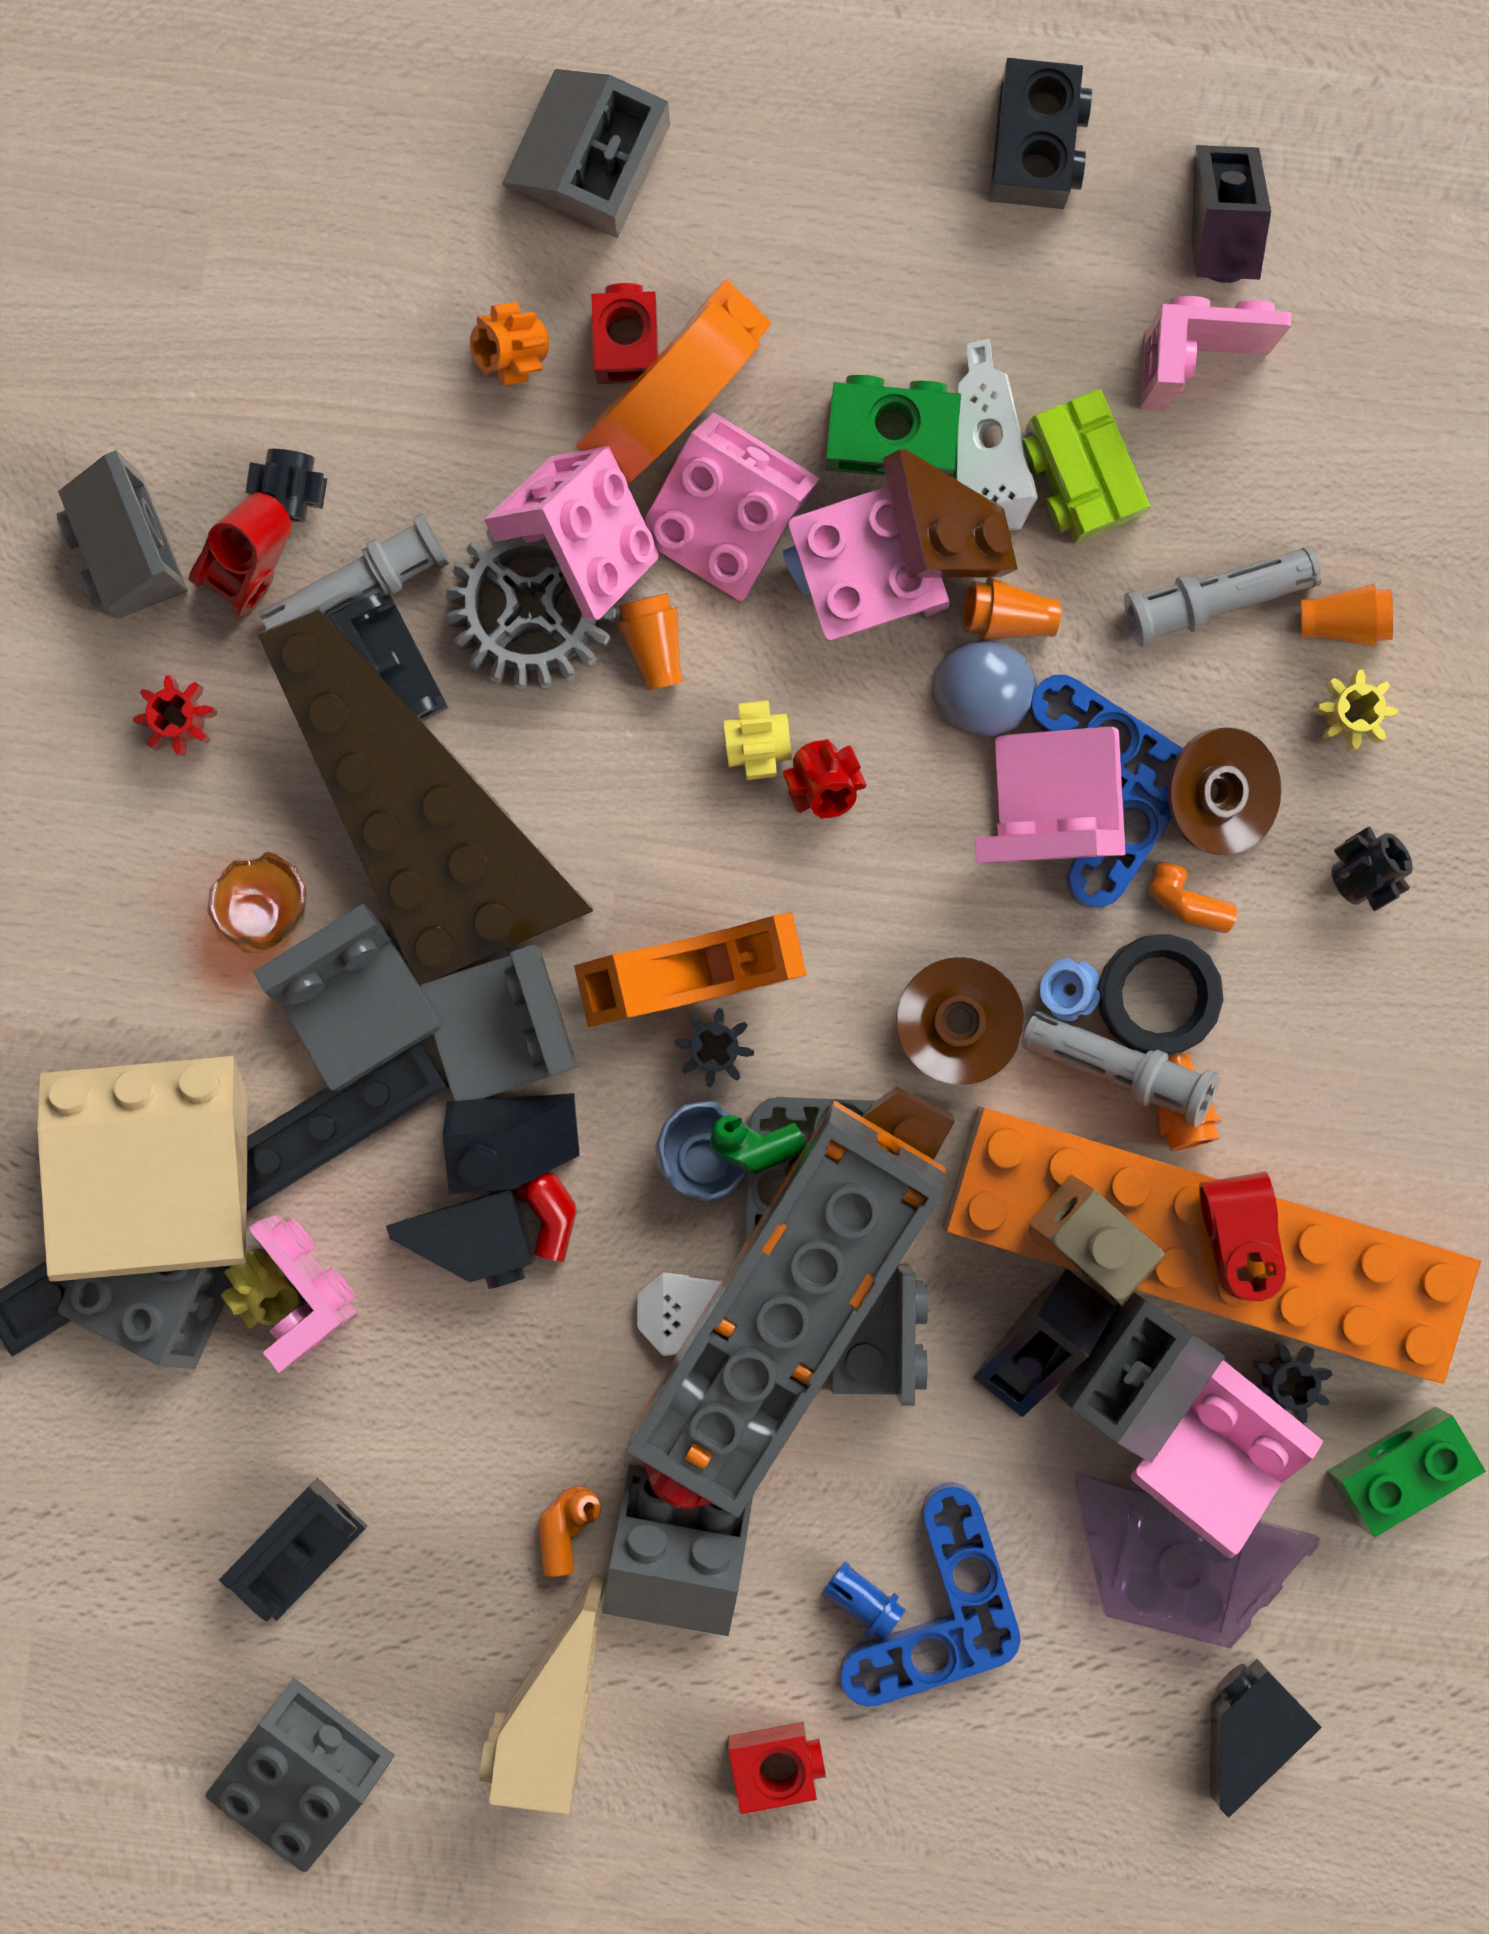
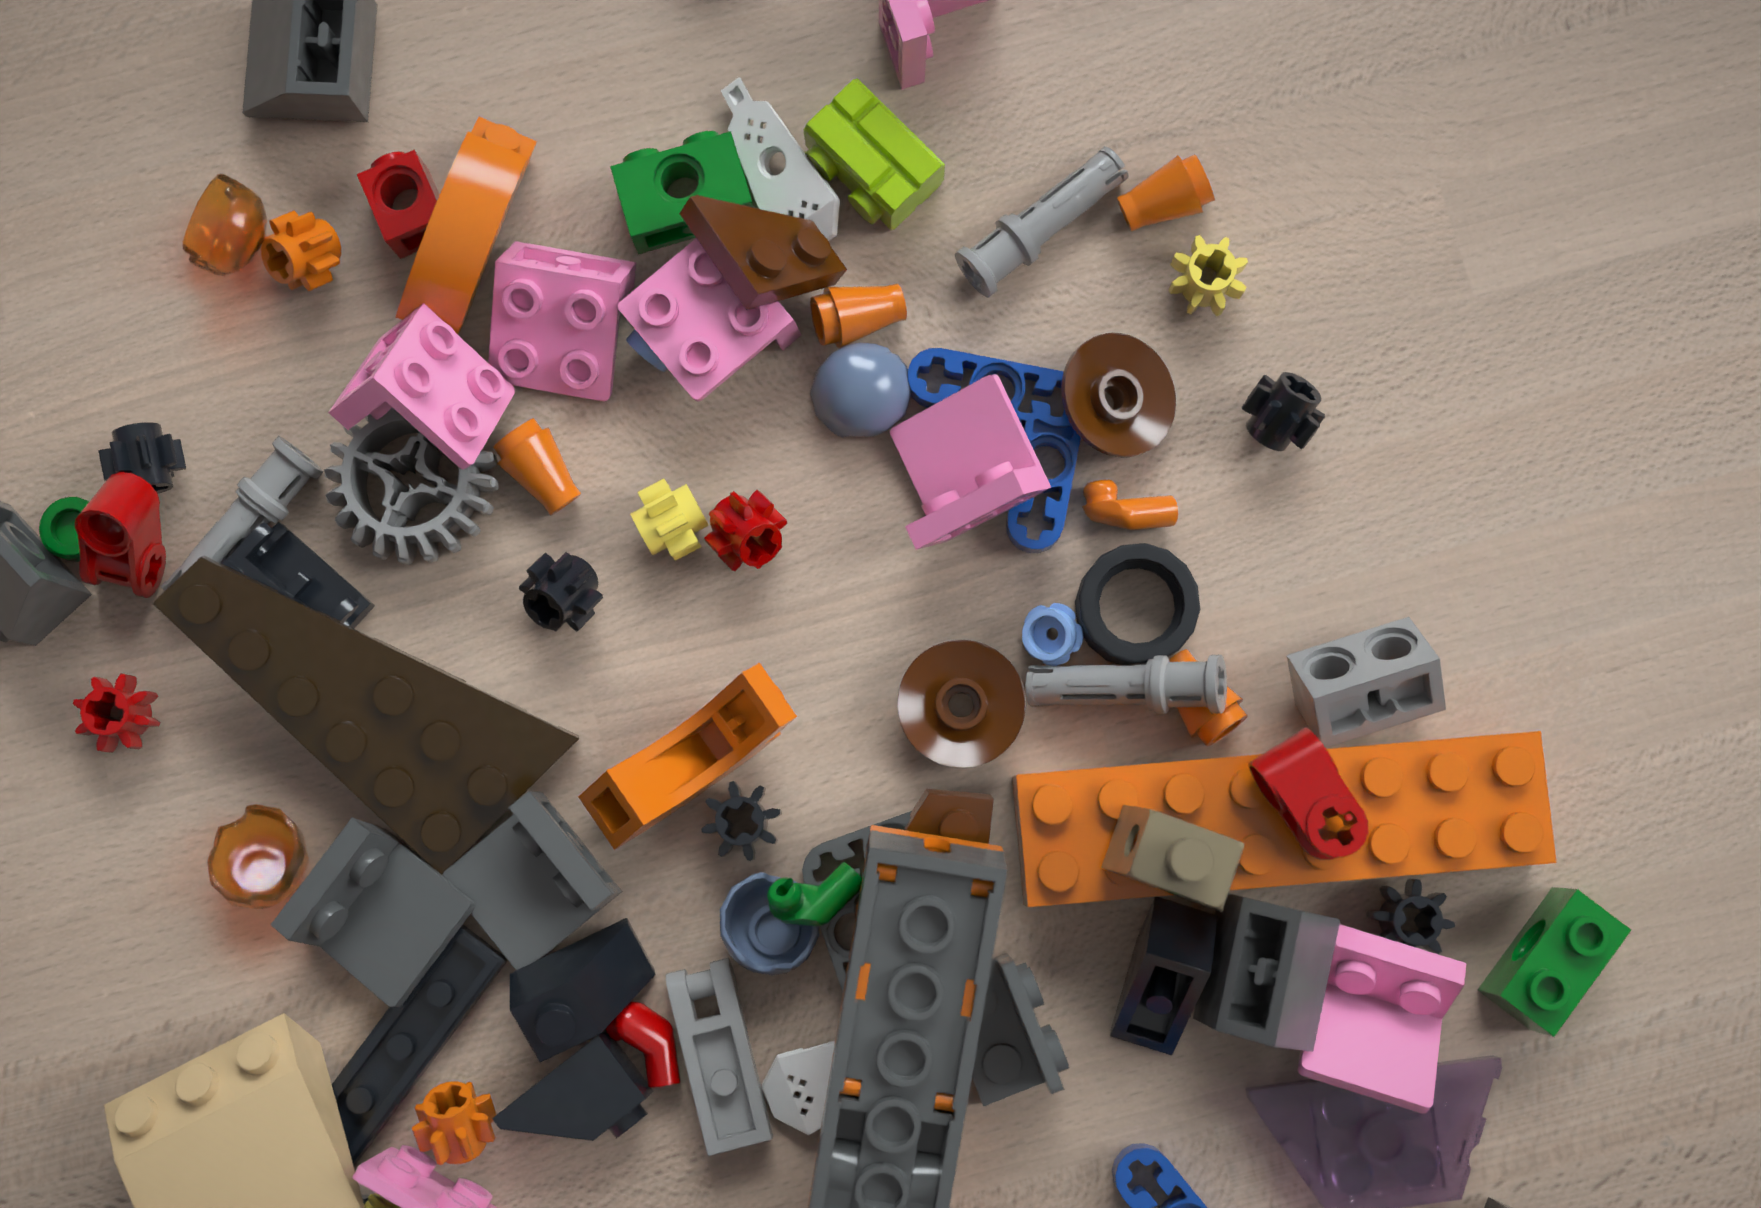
camera: 15 degrees left, 5 degrees down
(189, 520) = (58, 527): none -> green tile
(348, 1216) = (454, 1122): none -> orange gear
(445, 291) = (225, 227): none -> clear orange hair
(609, 1255) = (719, 1059): none -> light grey plate
(630, 768) = (560, 592): none -> black gear
(1341, 1151) = (1367, 682): none -> light grey brick

